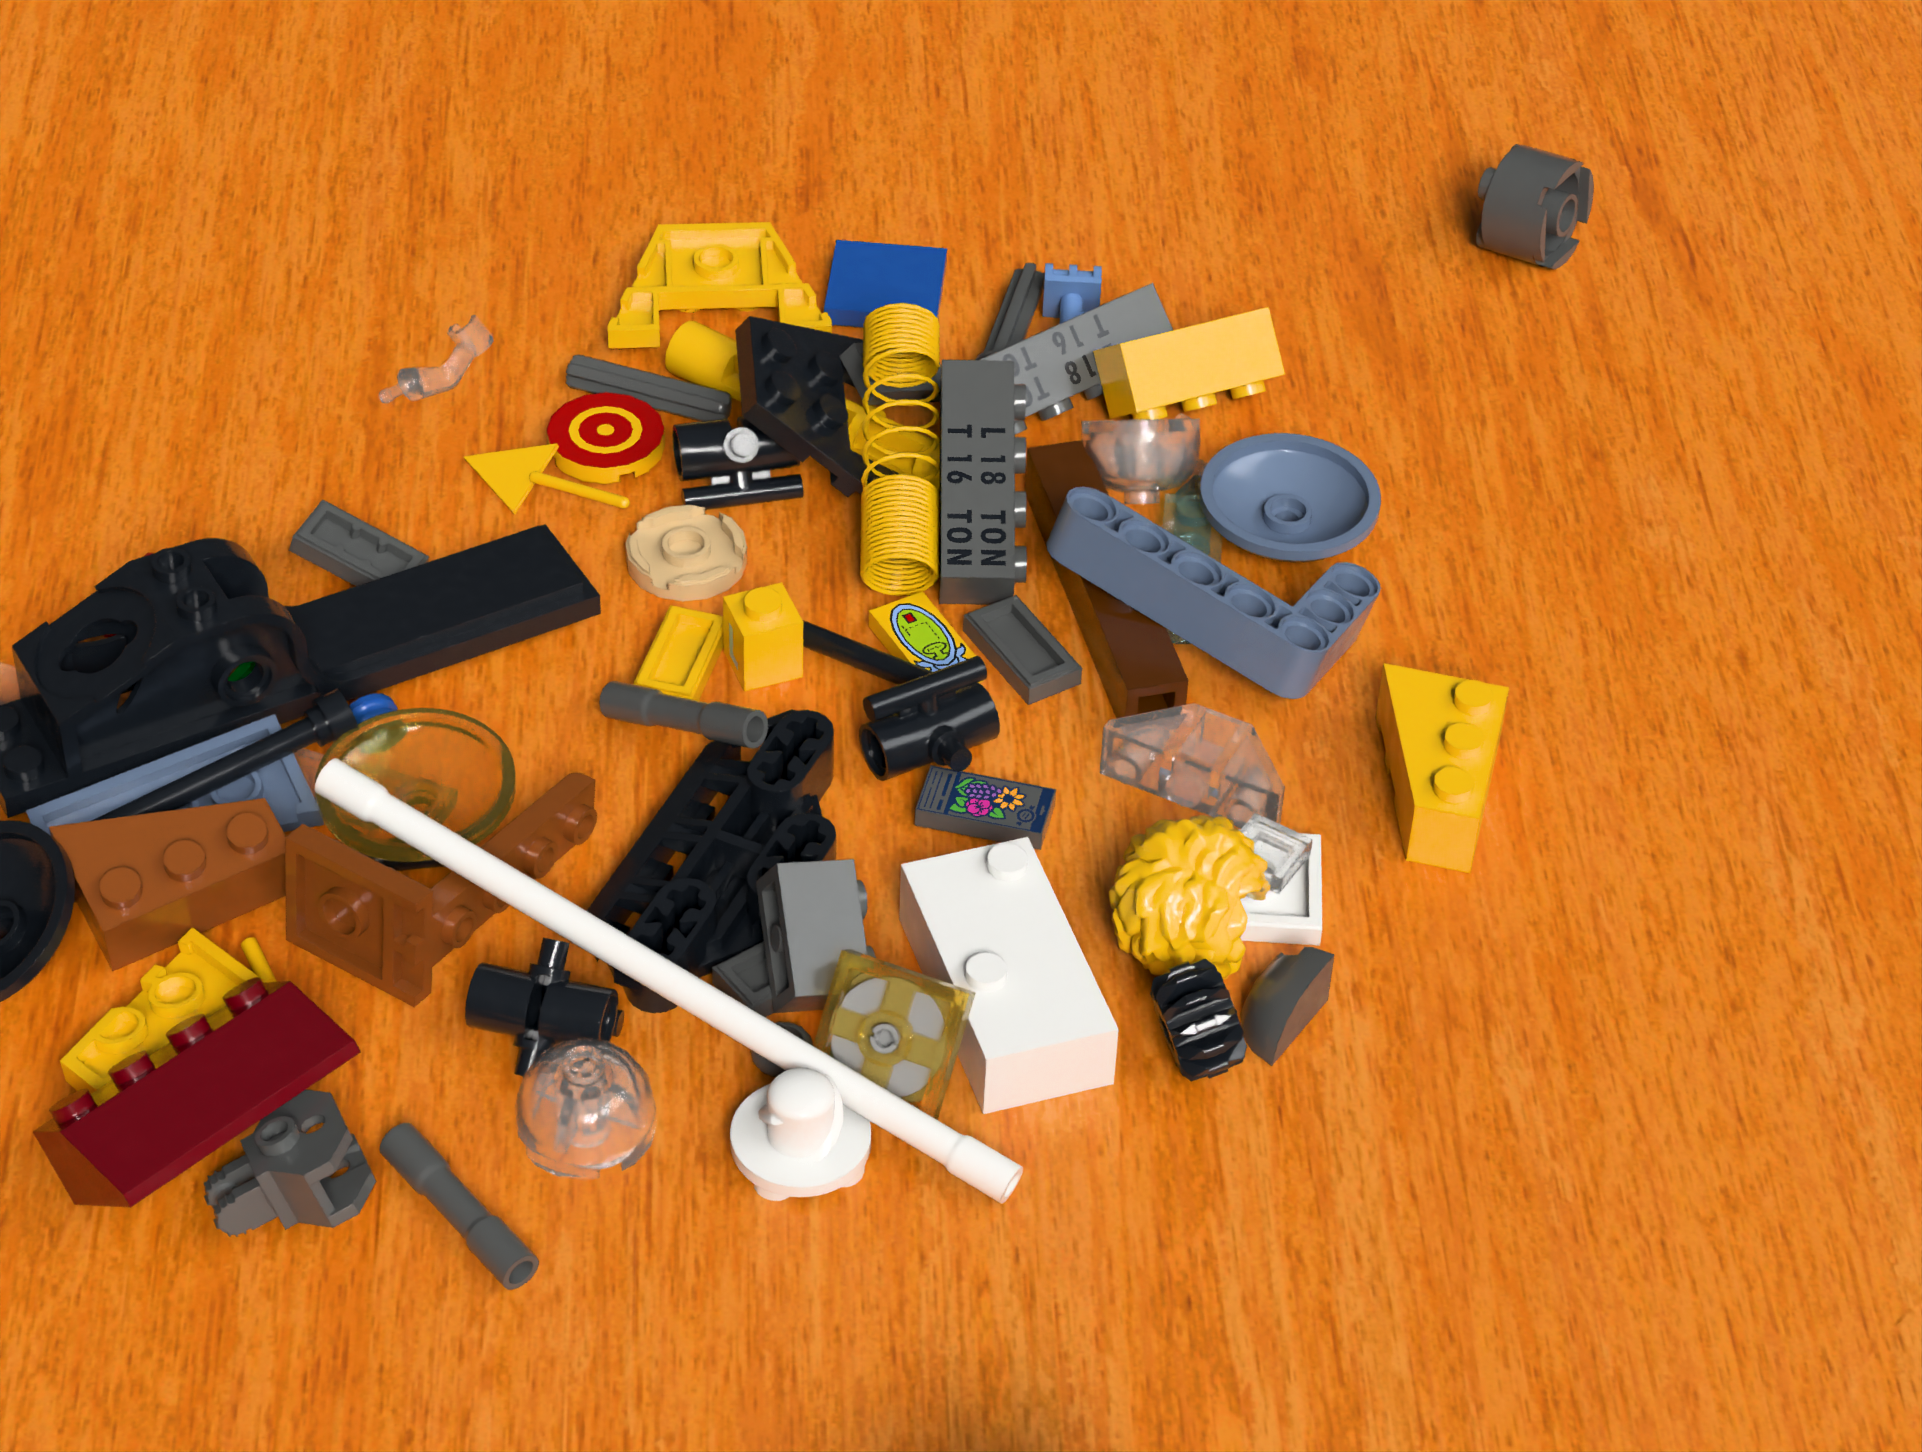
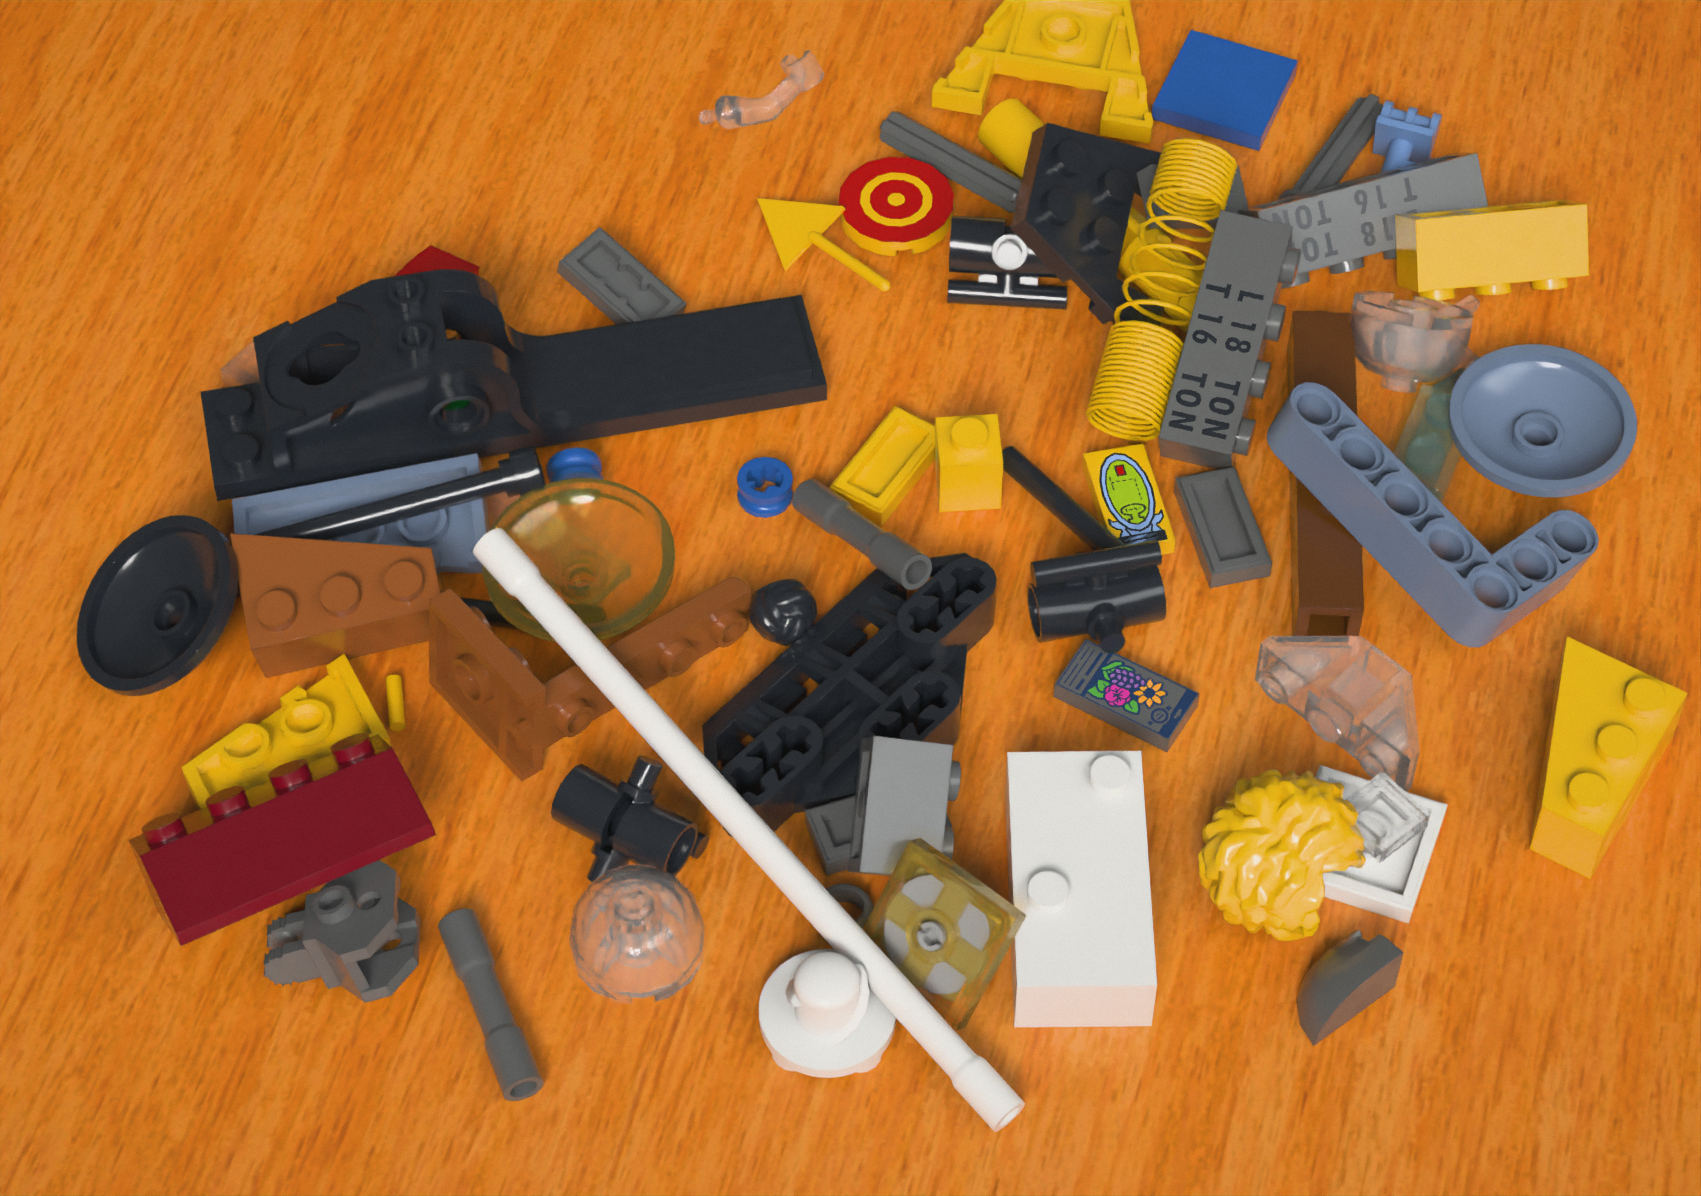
camera: 20 degrees right, 10 degrees up
(570, 714) = (775, 498): none -> blue bush
(627, 799) = (783, 611): none -> black piece
(686, 553) = (931, 349): tan tile -> none
(1198, 1019) = (1245, 989): black gear -> none

